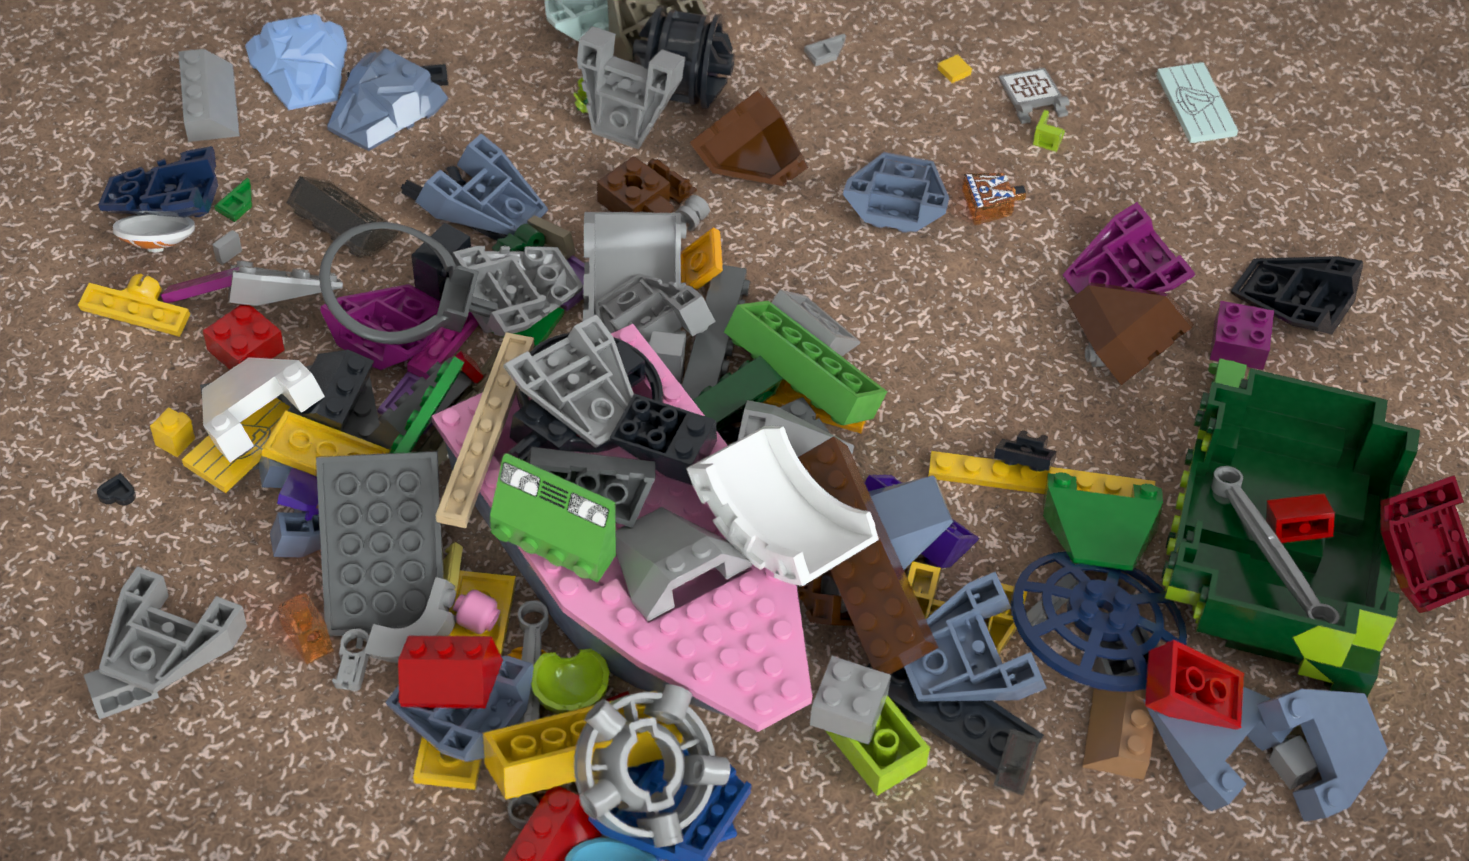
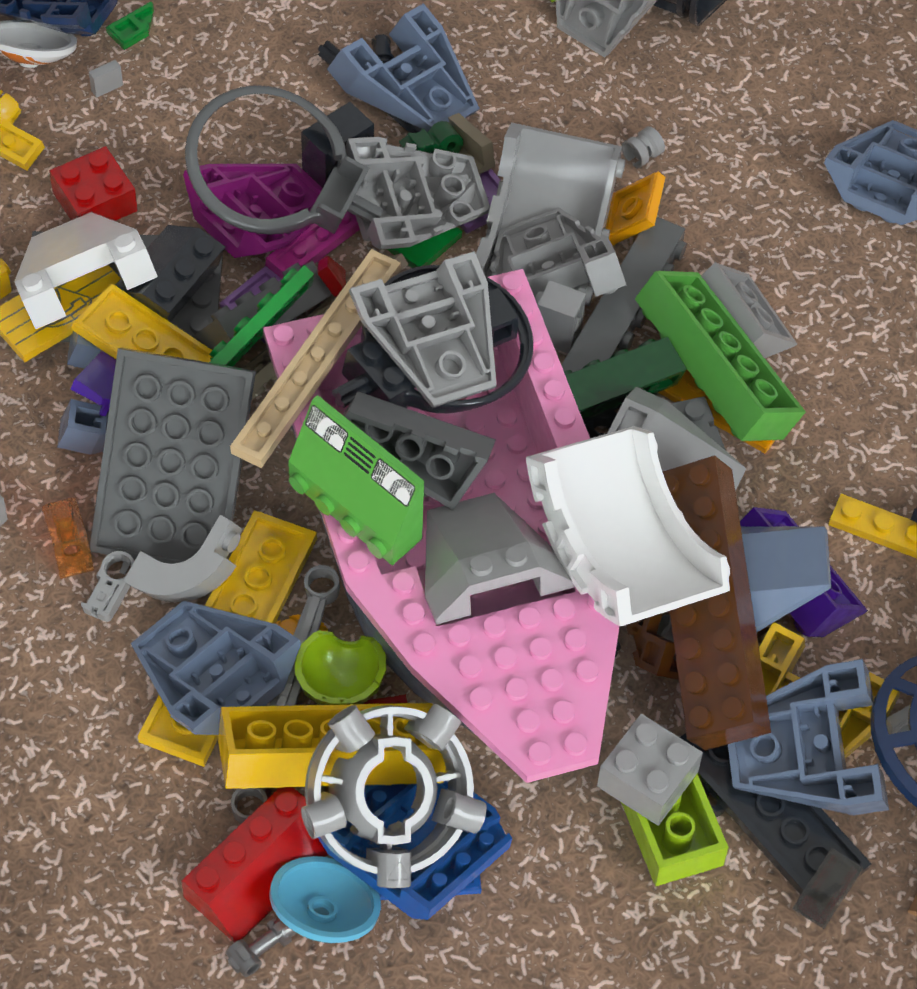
camera: 15 degrees right, 5 degrees up
(198, 286) = (66, 117): magenta tile -> none
(265, 286) = (131, 131): light grey wedge -> none
(336, 212) = (240, 61): clear smoke slope -> none
(448, 671) = (204, 626): red slope -> none
(452, 563) = (248, 504): light yellow tile -> none
(476, 611) = (259, 564): bright pink head -> none
(634, 189) = (584, 107): reddish brown brick -> none
(665, 436) = (516, 411): black slope -> none
(679, 187) = (627, 104): reddish brown hinge -> none
(751, 143) = (737, 78): reddish brown panel -> none

